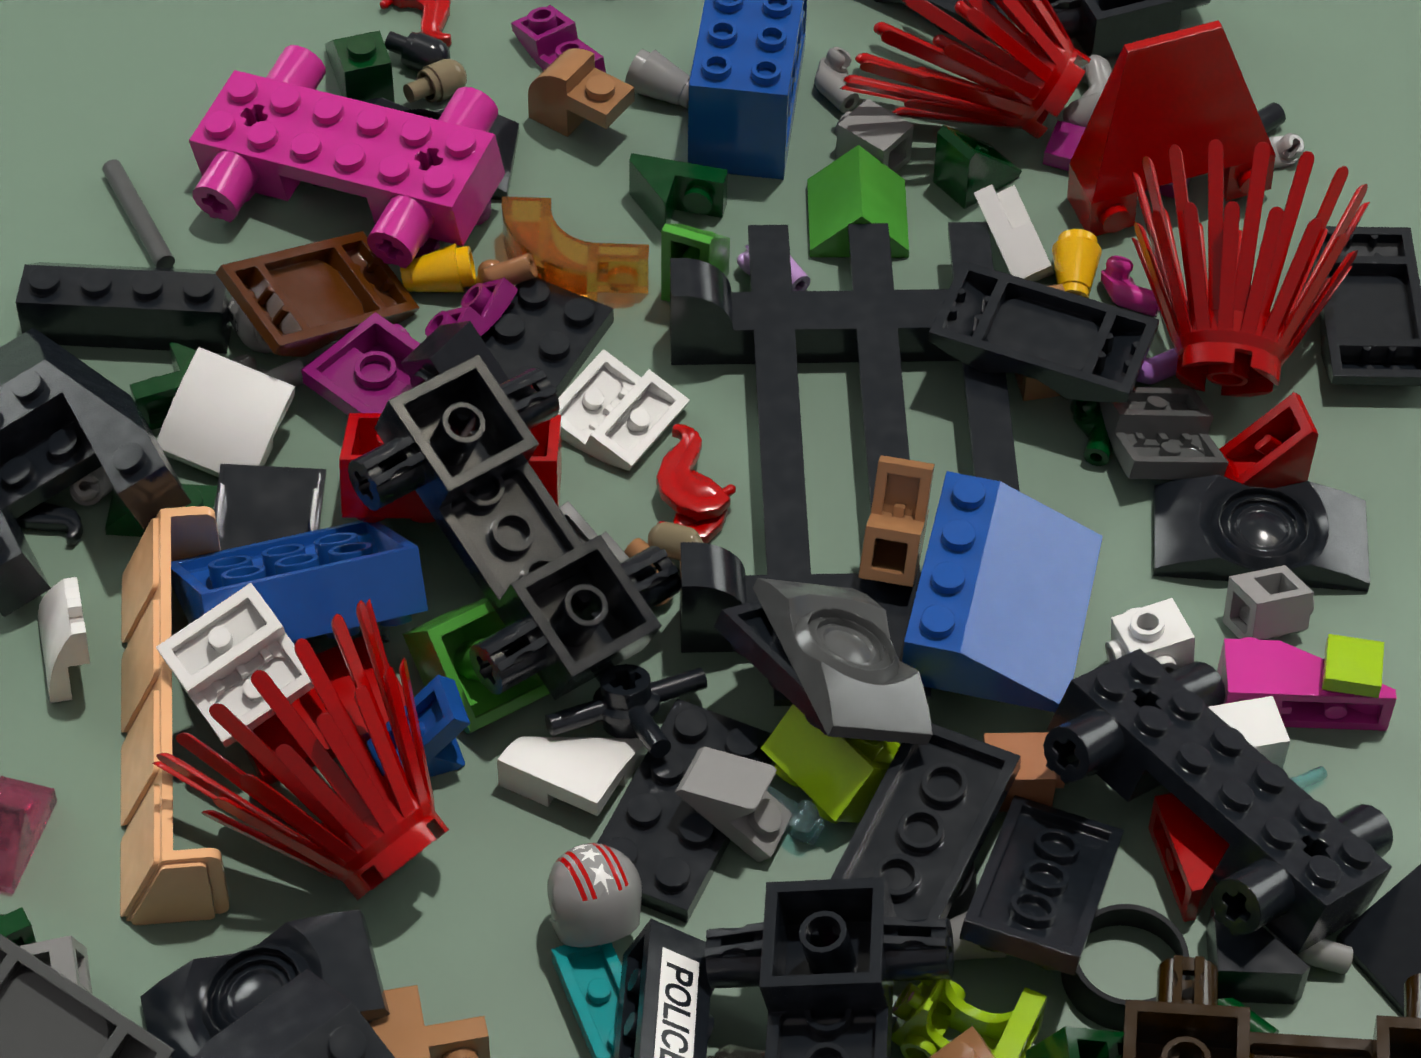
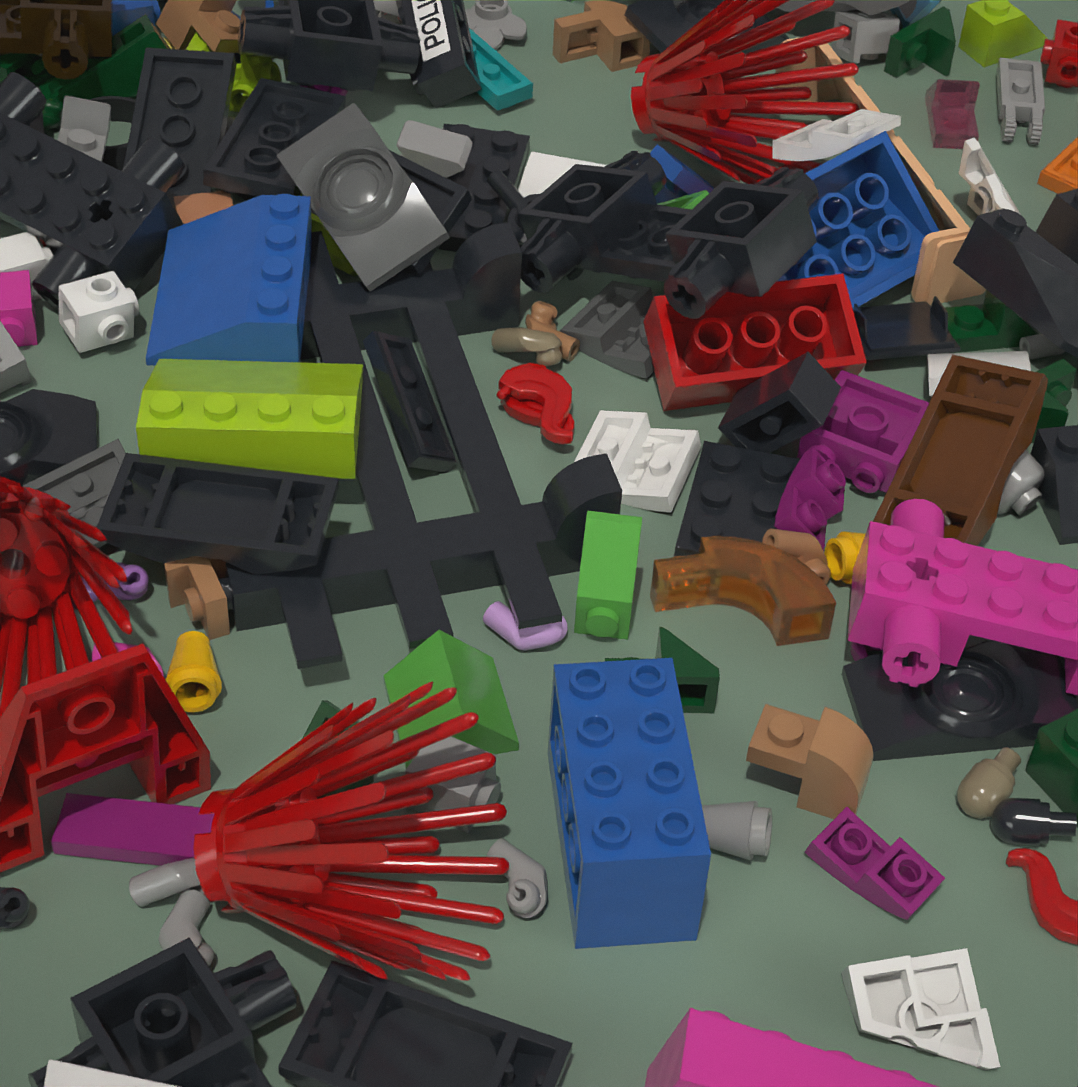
camera: 165 degrees right, 5 degrees down
(593, 895) = (512, 85): light grey helmet -> none
(833, 473) = (409, 402): none -> black tile
(897, 521) = (336, 307): medium nougat brick -> none
(1006, 423) = (254, 414): none -> lime slope
(1014, 233) = (266, 686): white slope -> none
(1164, 883) = (85, 126): none -> light grey slope

